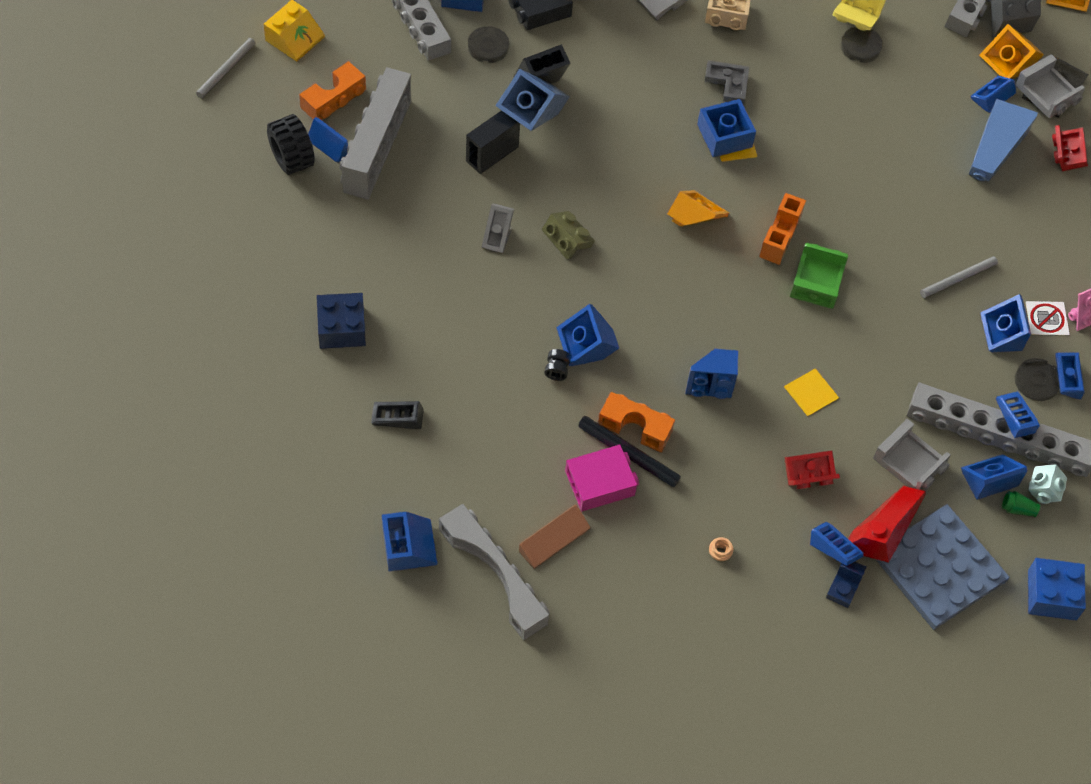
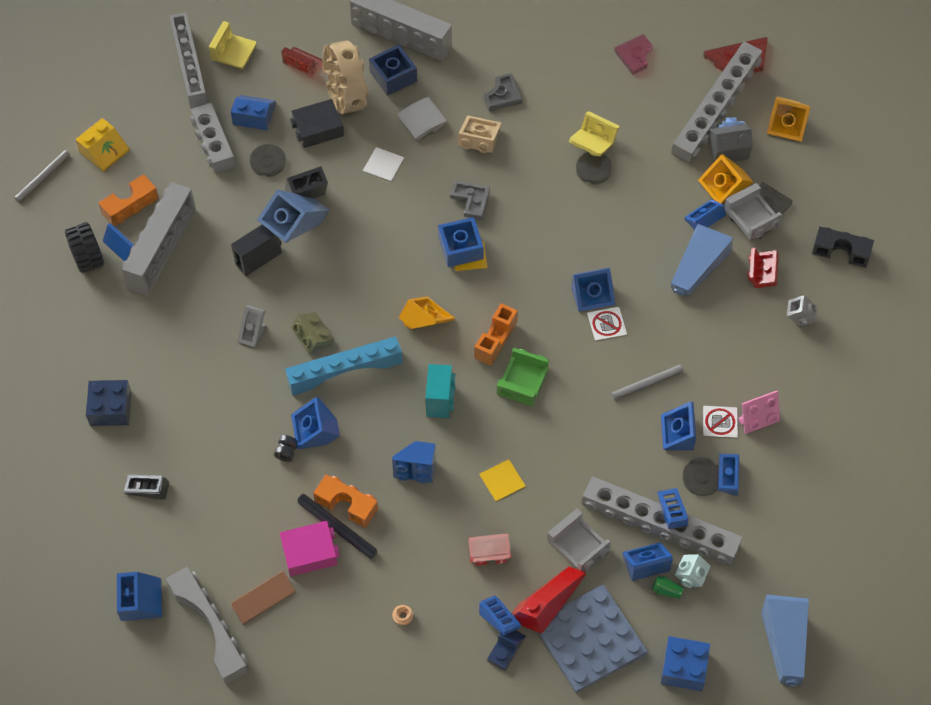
camera: 10 degrees right, 0 degrees up
(574, 280) = (374, 355): none -> dark azure arch
(621, 45) = (383, 164): none -> white sticker
(729, 293) = (440, 391): none -> teal brick
(883, 176) = (593, 289): none -> blue slope
(902, 214) = (607, 323): none -> sticker

